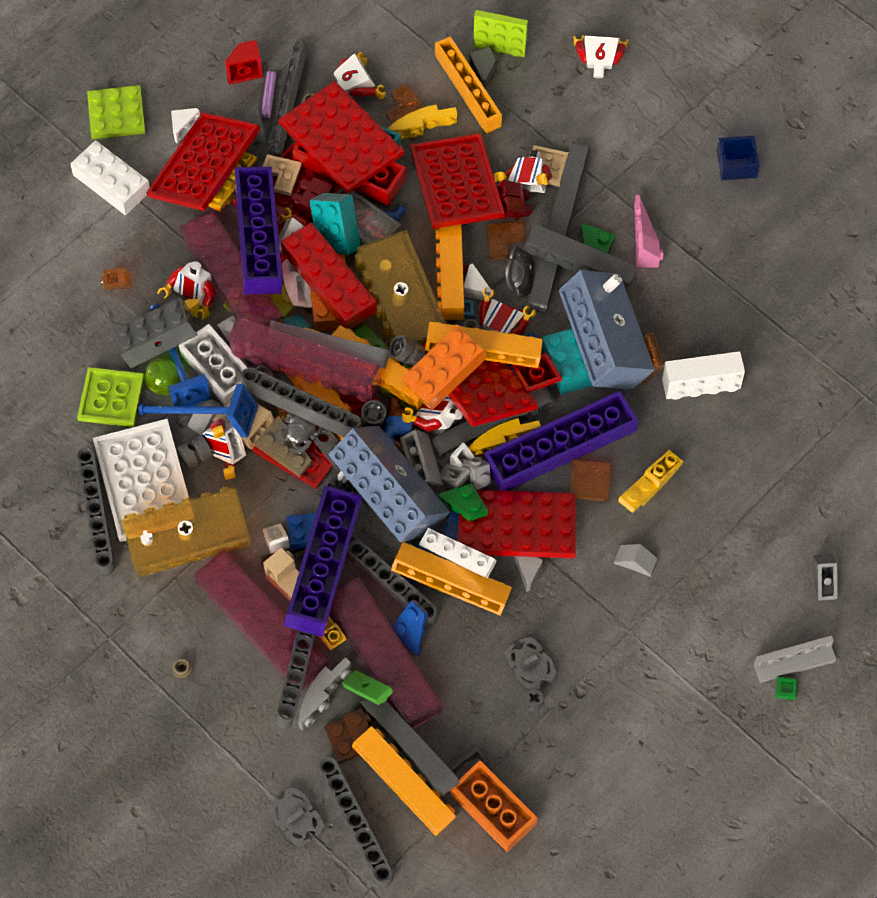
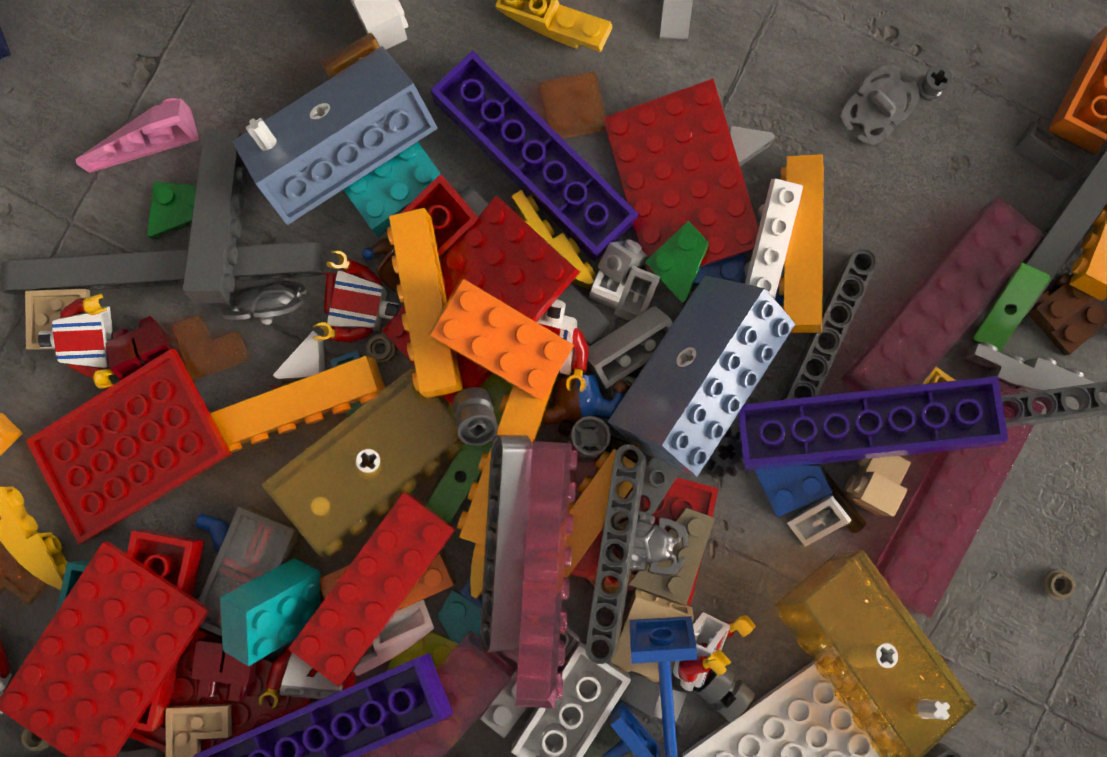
camera: 110 degrees left, 20 degrees up
(411, 626) = (890, 280): blue wing -> none

